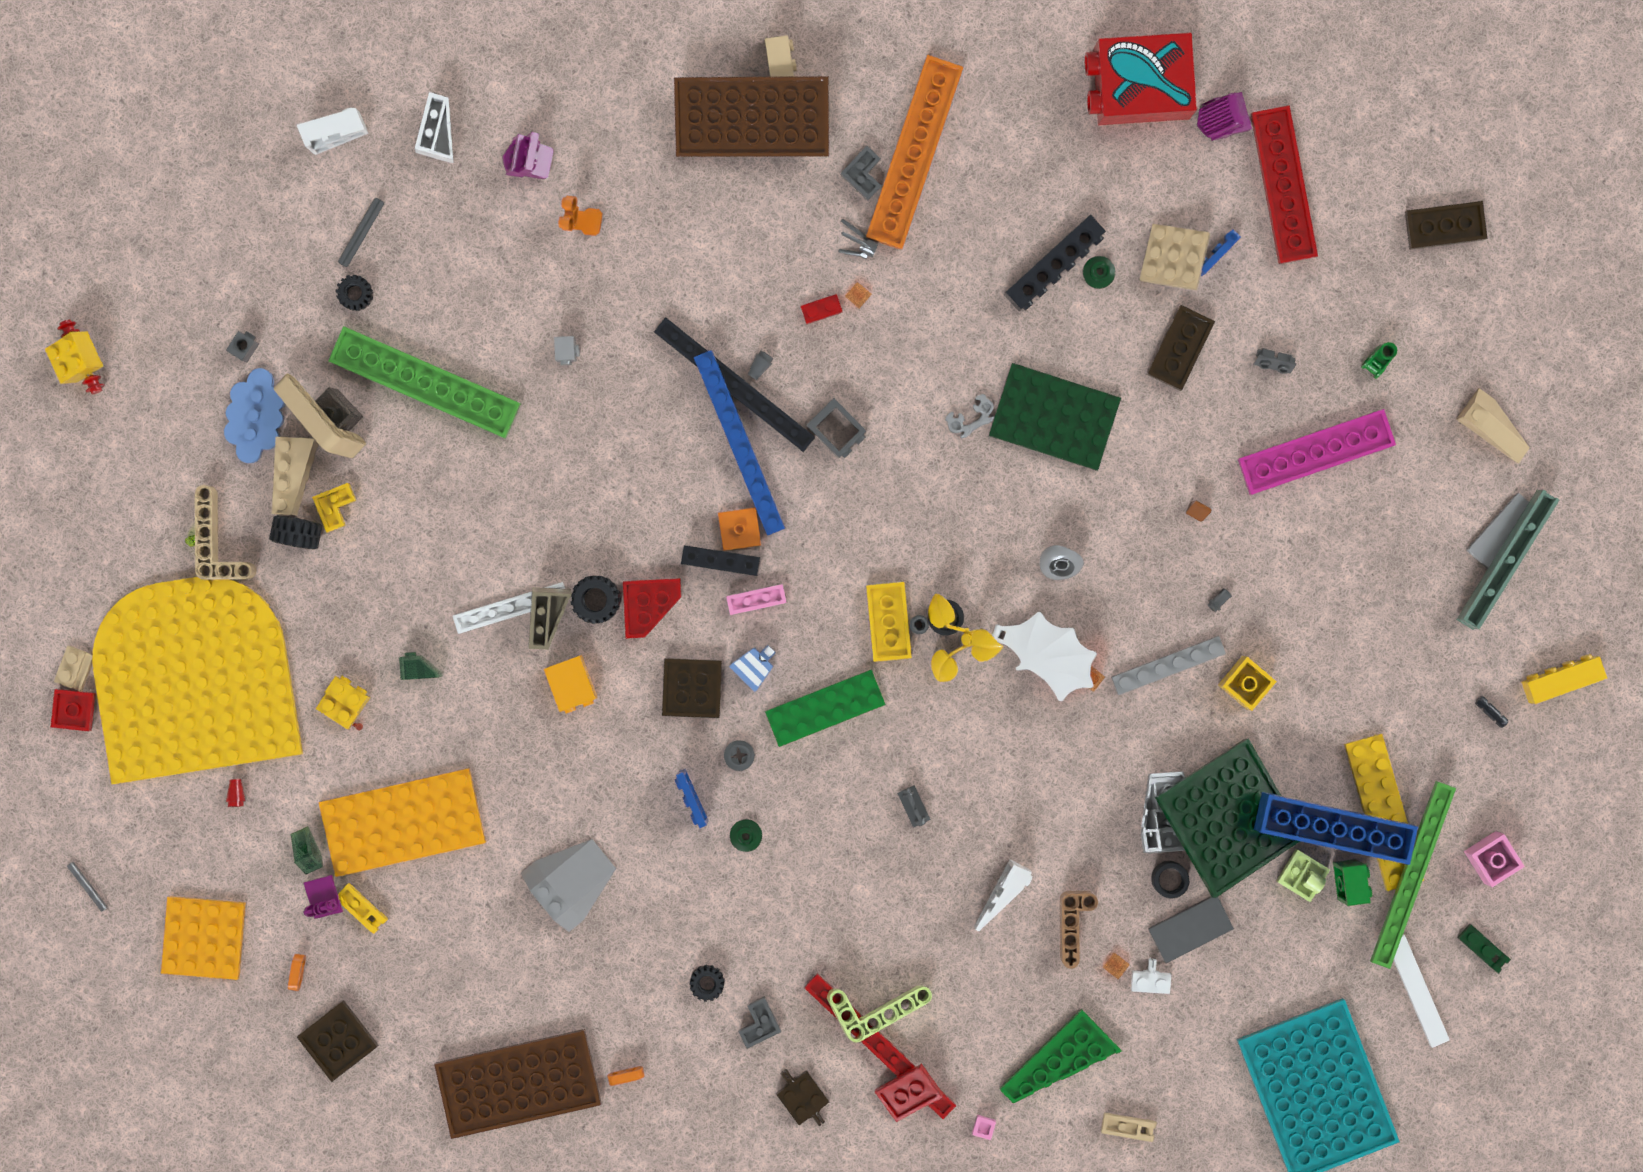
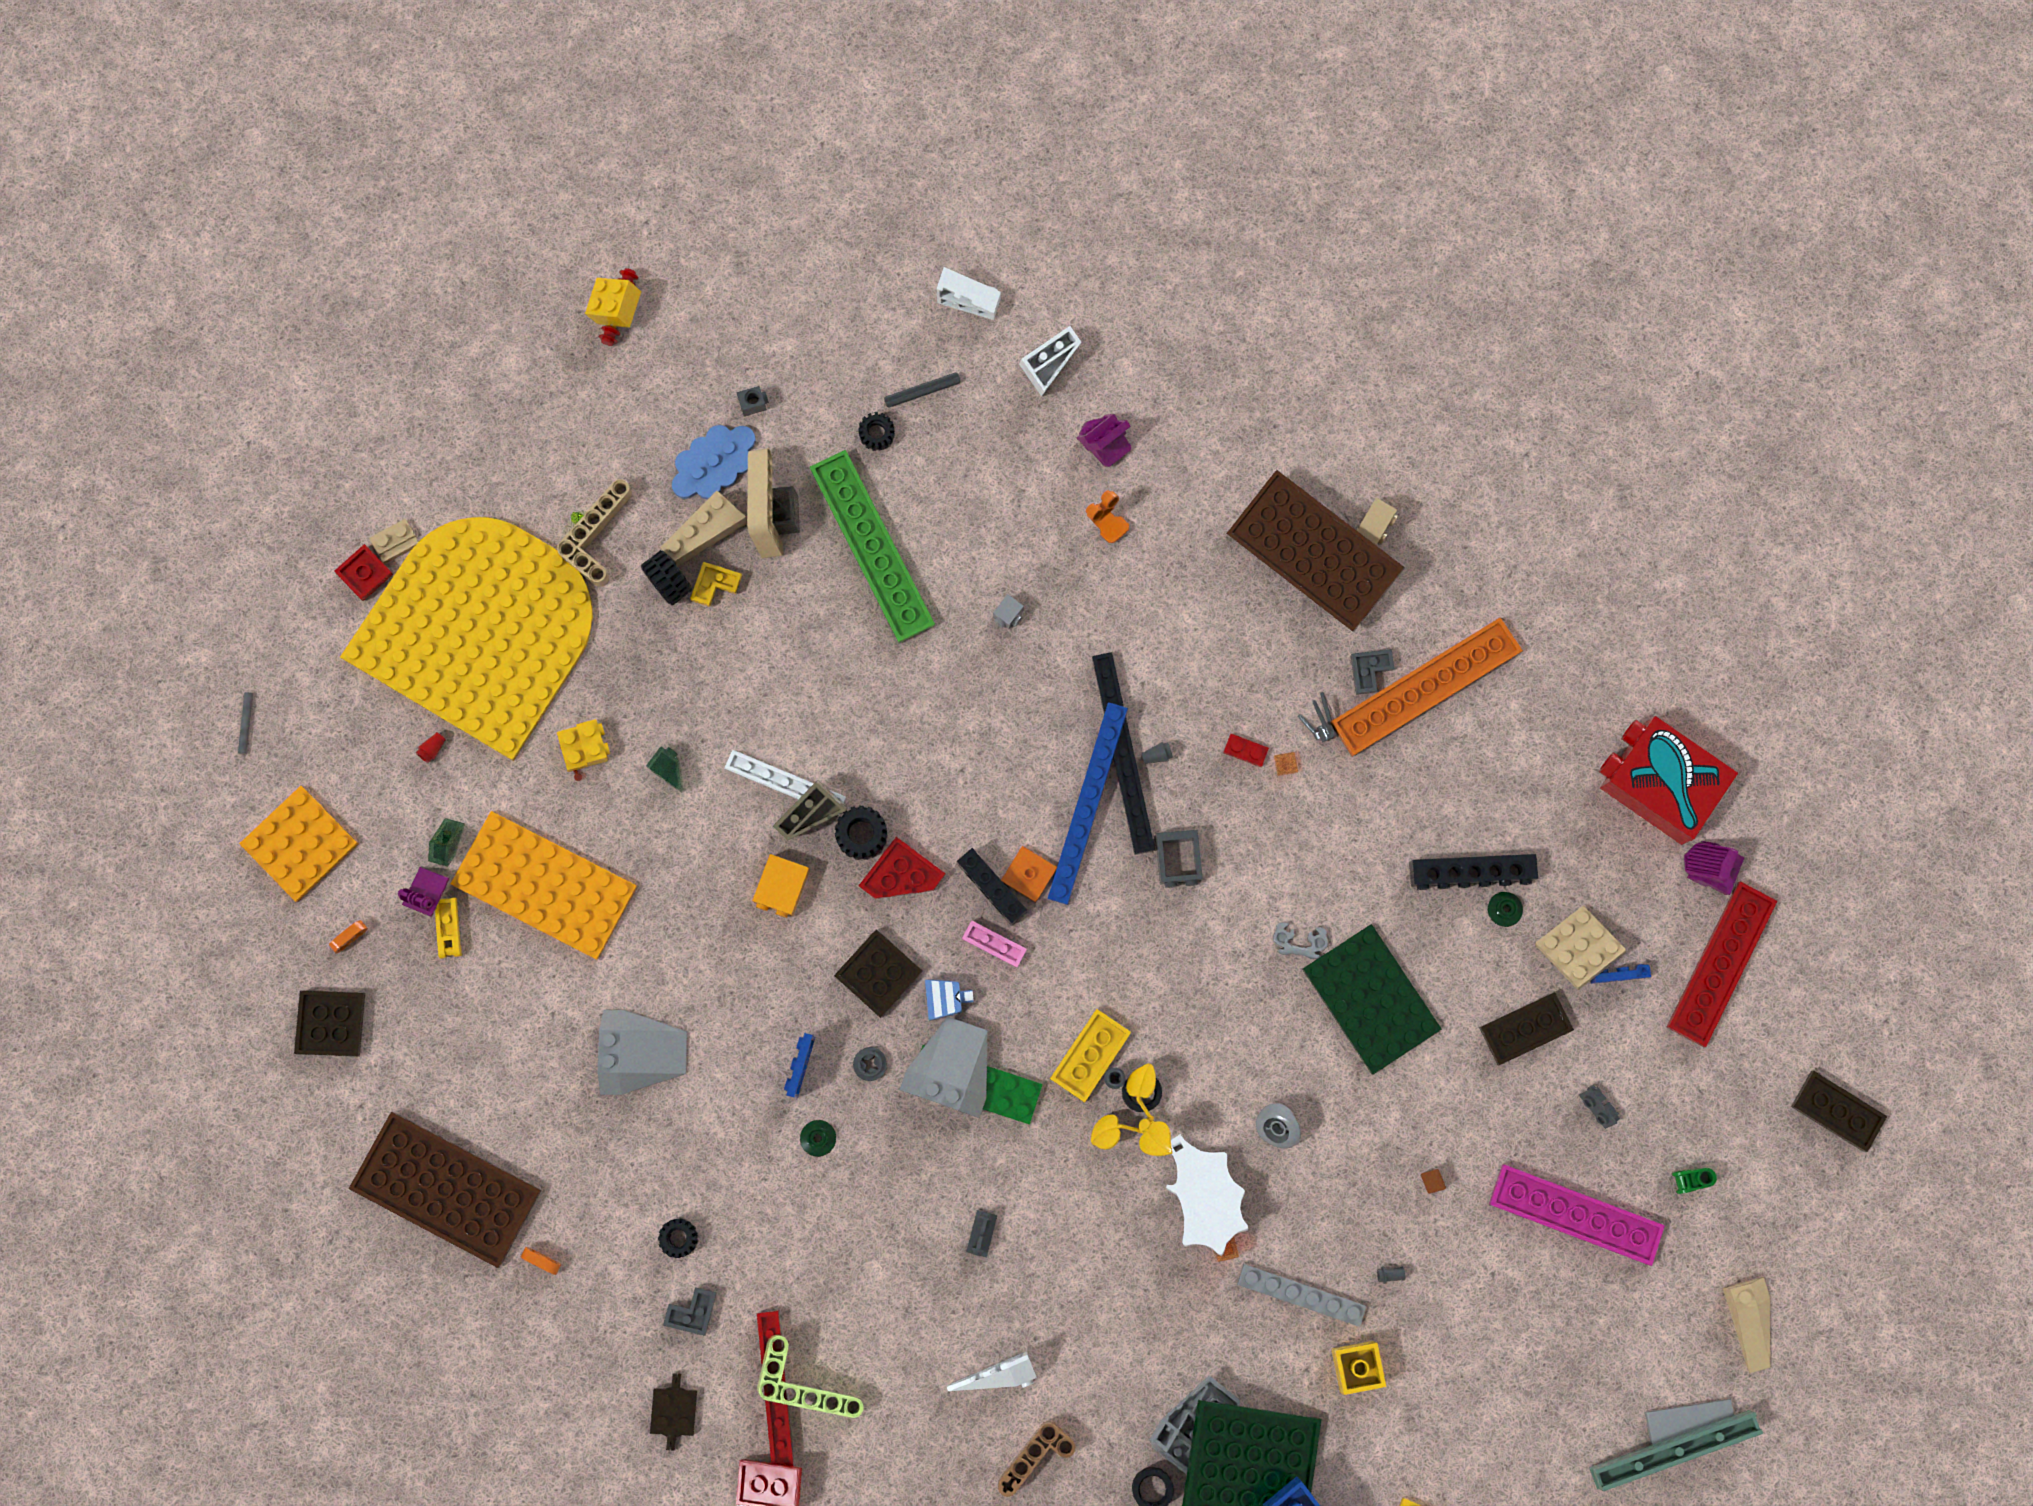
camera: 35 degrees right, 10 degrees down
(799, 712) = (951, 1068): none -> light grey wedge

